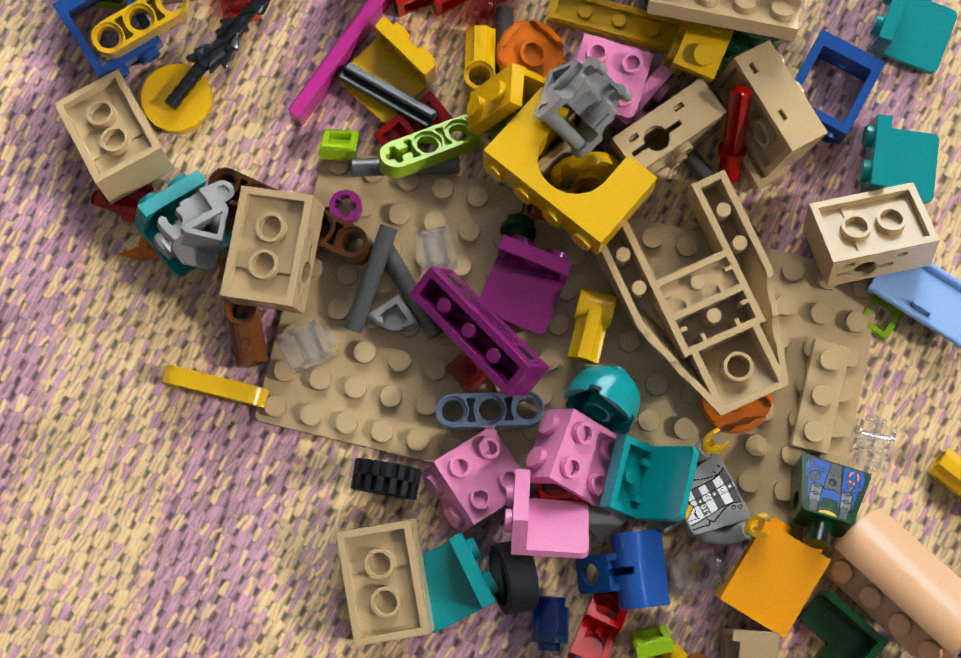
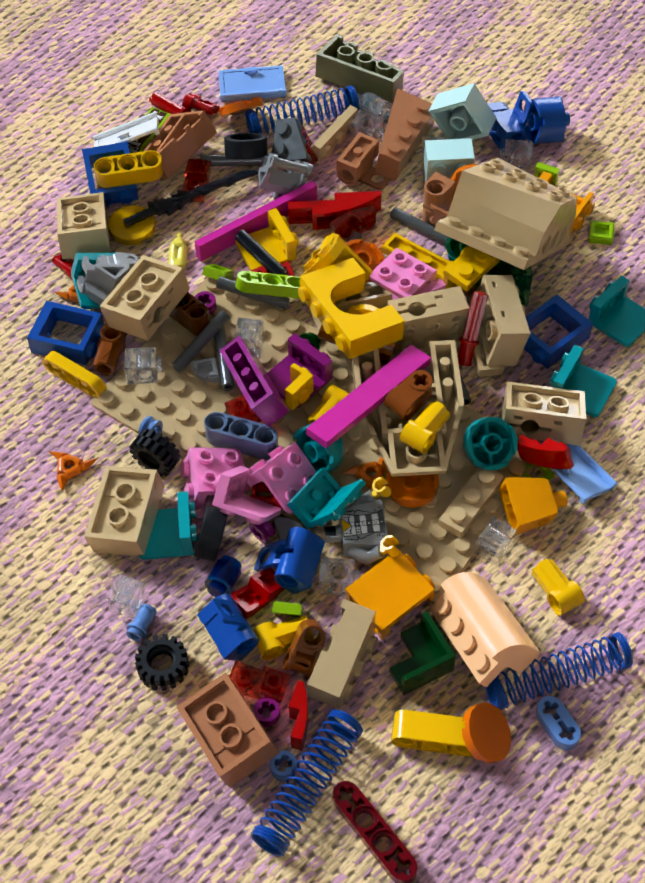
camera: 25 degrees right, 25 degrees down
(136, 323) = (52, 312): none -> blue window
(264, 519) = (67, 459): none -> orange piece
(265, 127) = (178, 252): none -> light yellow piece
(363, 442) = (150, 423): none -> medium blue bush
(543, 319) = (300, 388): none -> yellow bracket
(589, 93) = (379, 266): light grey piece -> none
(649, 311) = (366, 397): none -> dark pink tile
(663, 404) = (360, 471): none -> orange piece
(703, 298) = (410, 394): none -> dark orange piece
(740, 345) = (422, 432): none -> yellow piece
(822, 314) = (489, 443): none -> teal cylinder
(825, 498) = (448, 552): torso -> none
(896, 377) = (530, 502): none -> light orange torso
(906, 303) = (547, 455): none -> red slope

